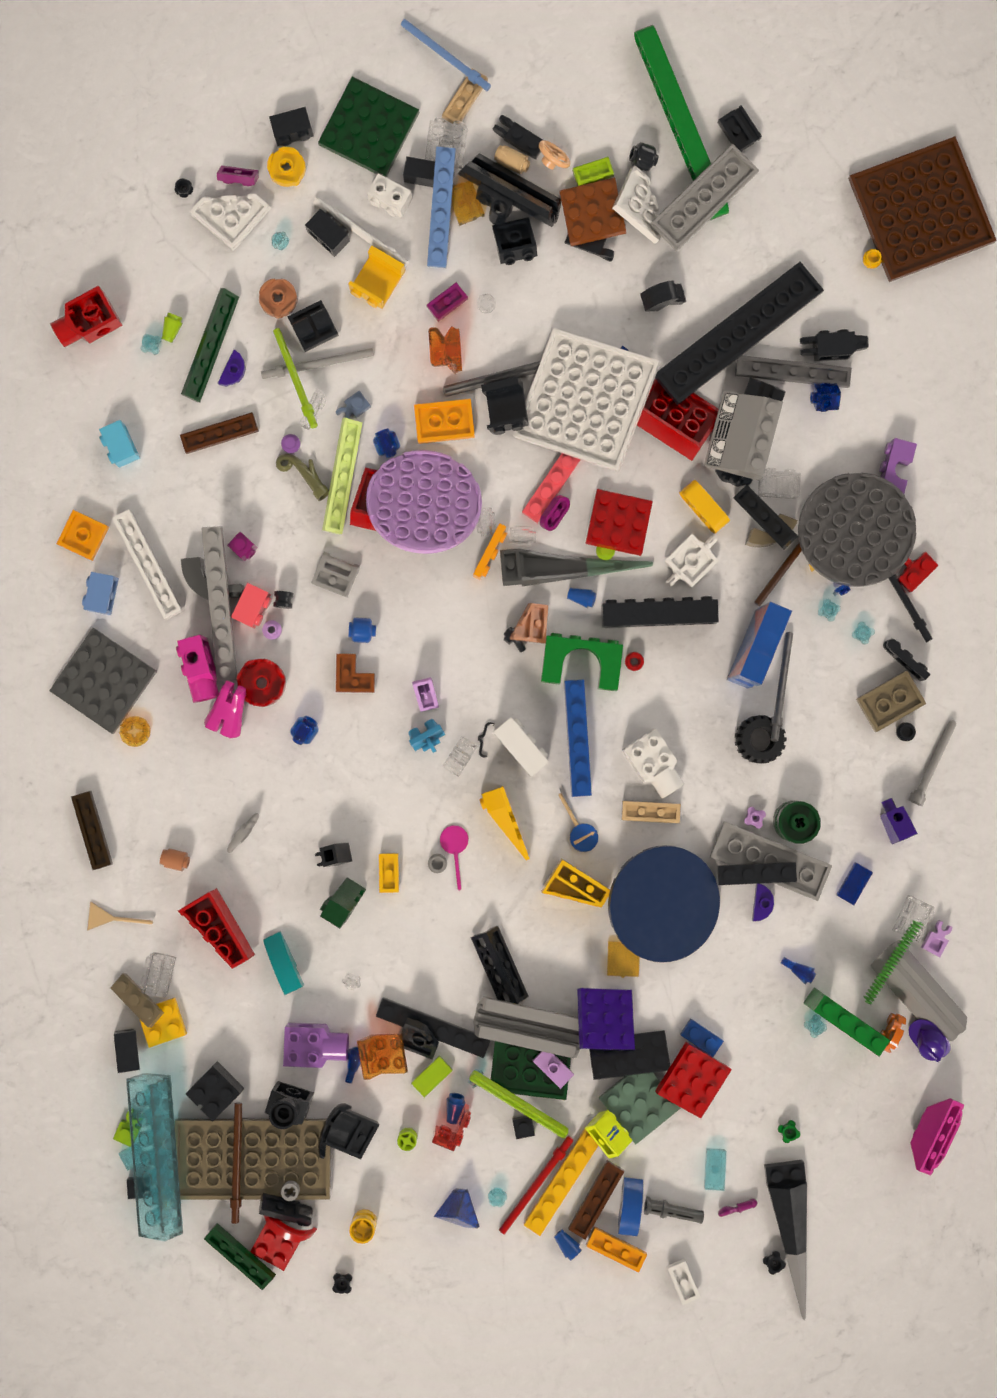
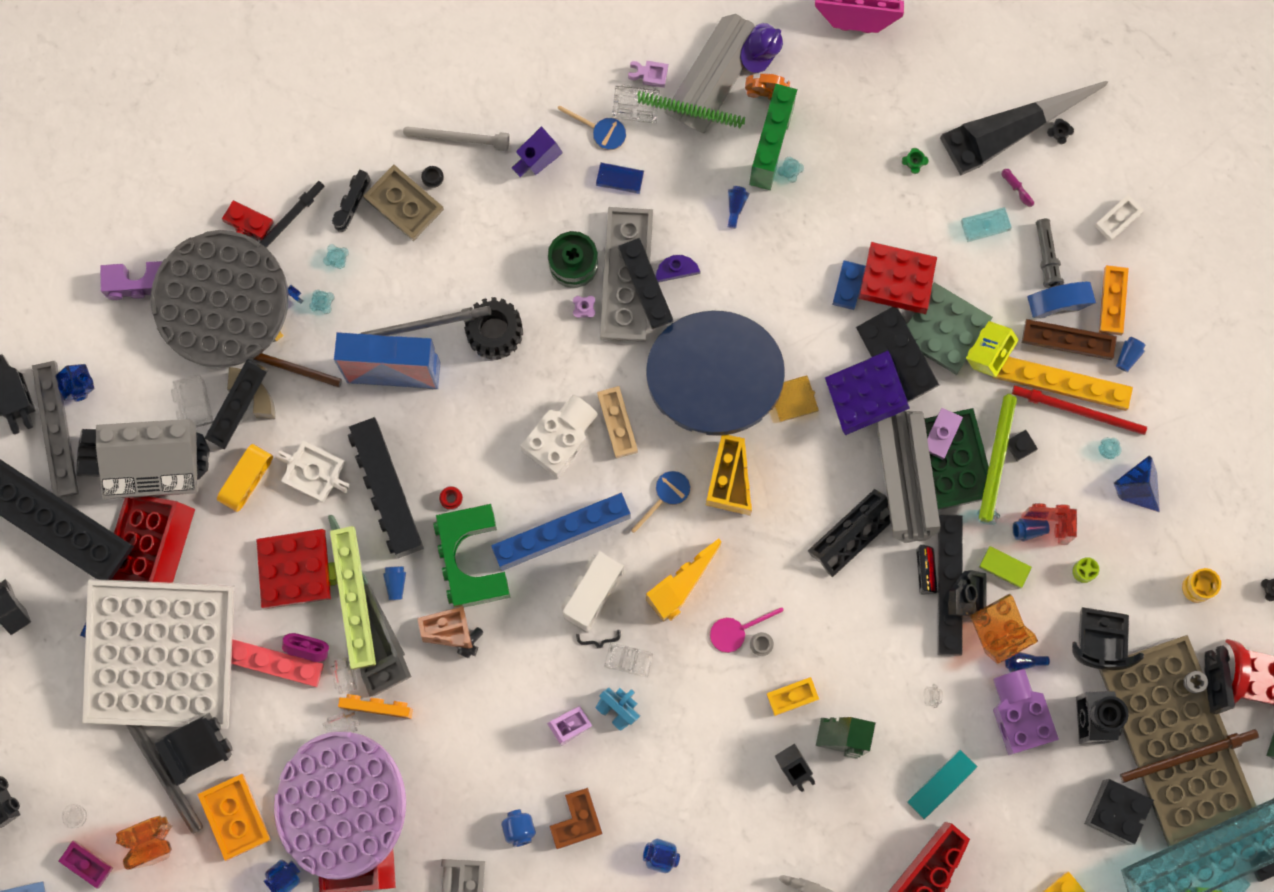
camera: 105 degrees left, 10 degrees down
(450, 1013) = (926, 570): none -> slope
(580, 560) = (352, 598): none -> yellowish green plate
(896, 887) = (607, 133): none -> blue piece

